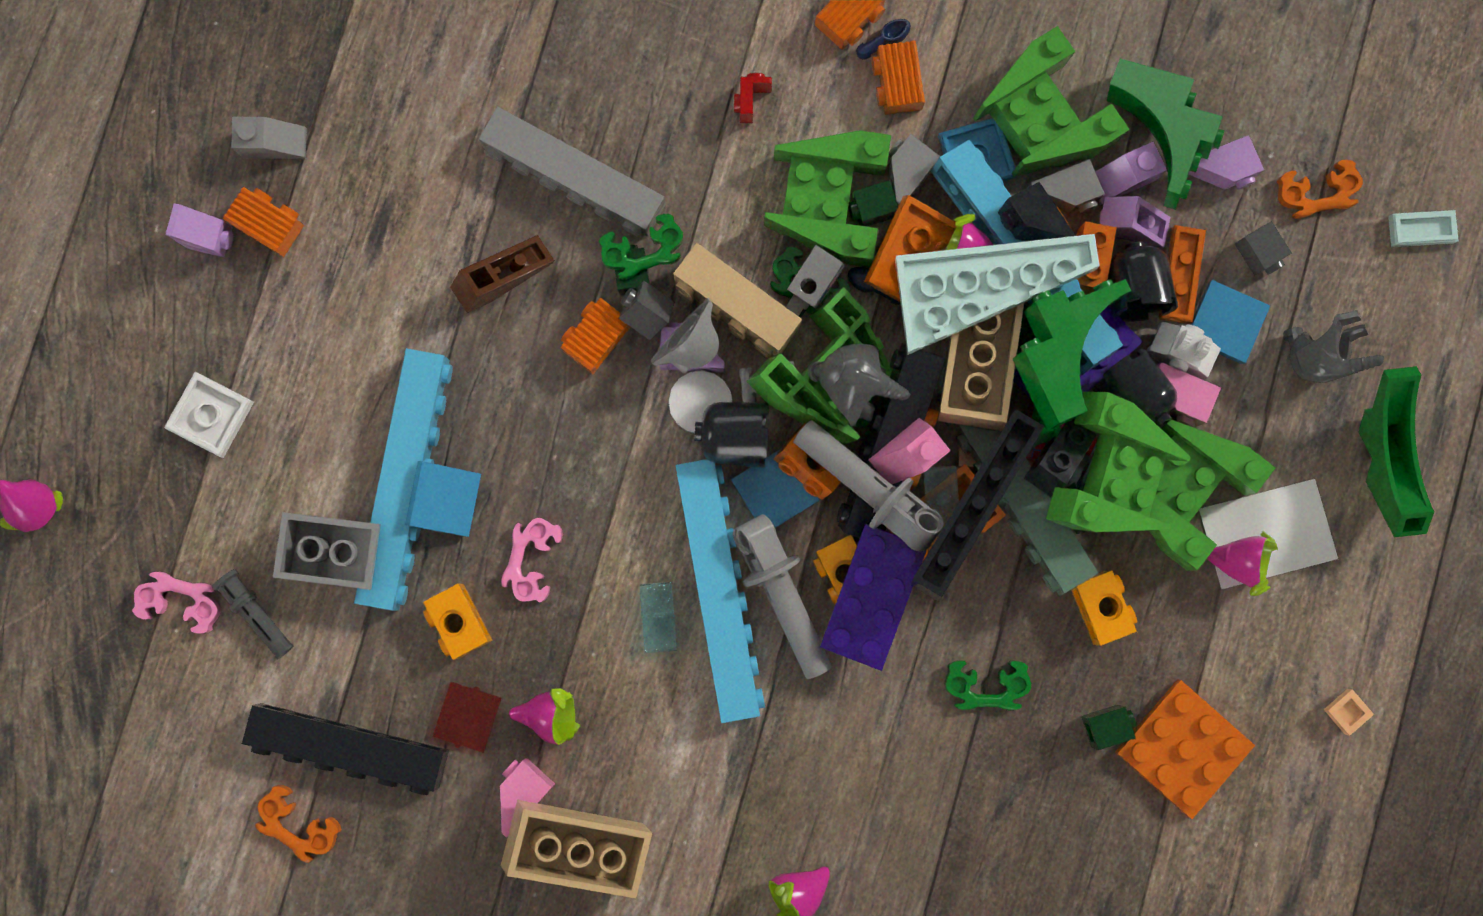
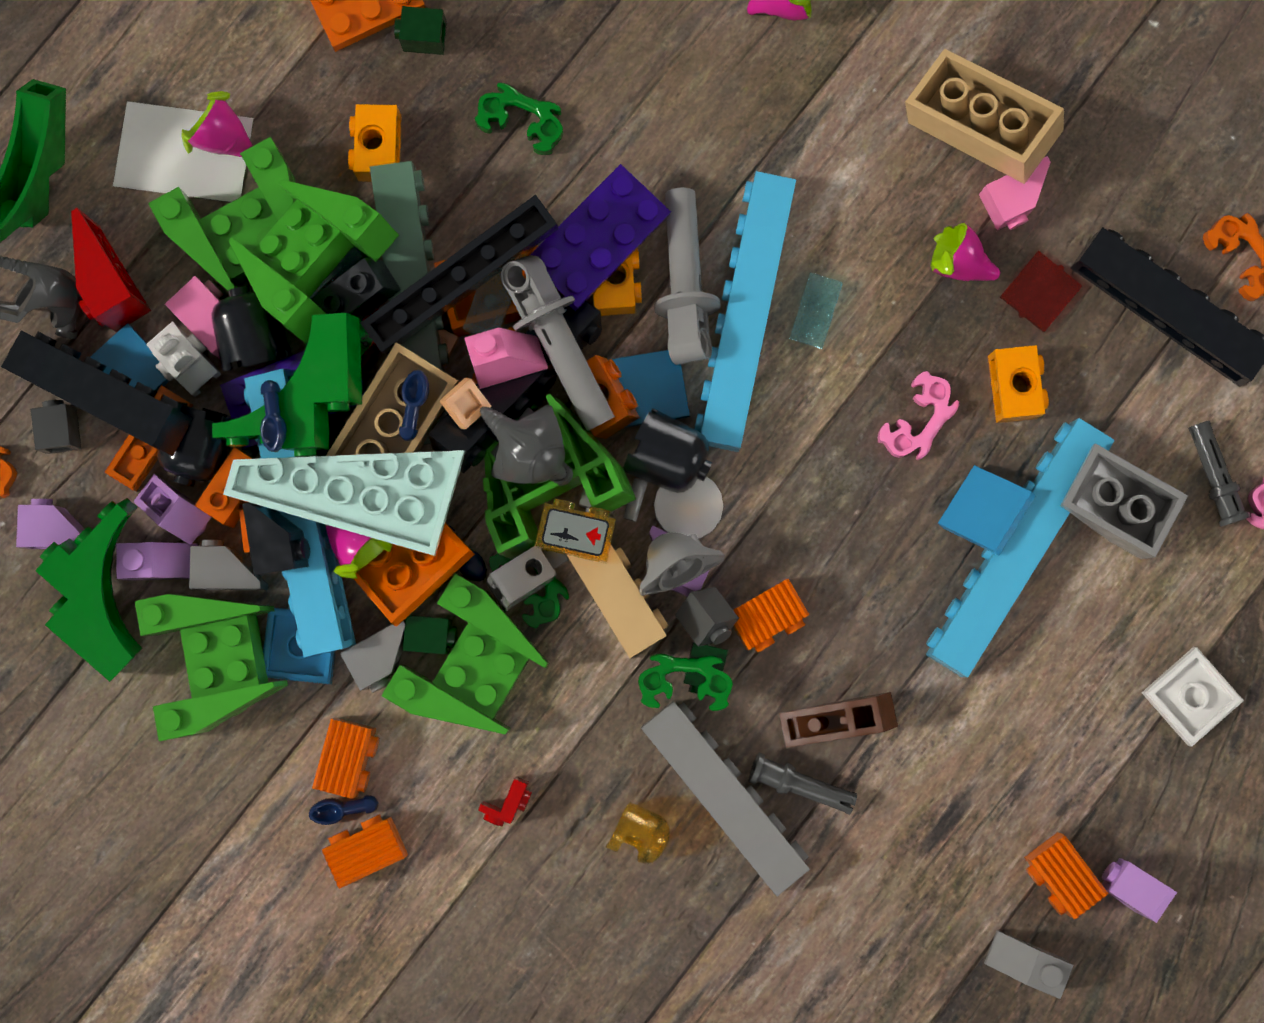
camera: 155 degrees left, 0 degrees up
(526, 207) = (786, 779): none -> dark grey pin
(629, 119) = (642, 830): none -> clear yellow helmet
(784, 325) = (576, 532): none -> brick
(925, 395) = (464, 403): none -> light nougat plate
(970, 383) = (414, 394): none -> dark blue piece
(1078, 304) = (273, 425): none -> dark blue piece
(1241, 286) = (98, 393): none -> black brick
(1285, 390) = (102, 278): none -> red slope

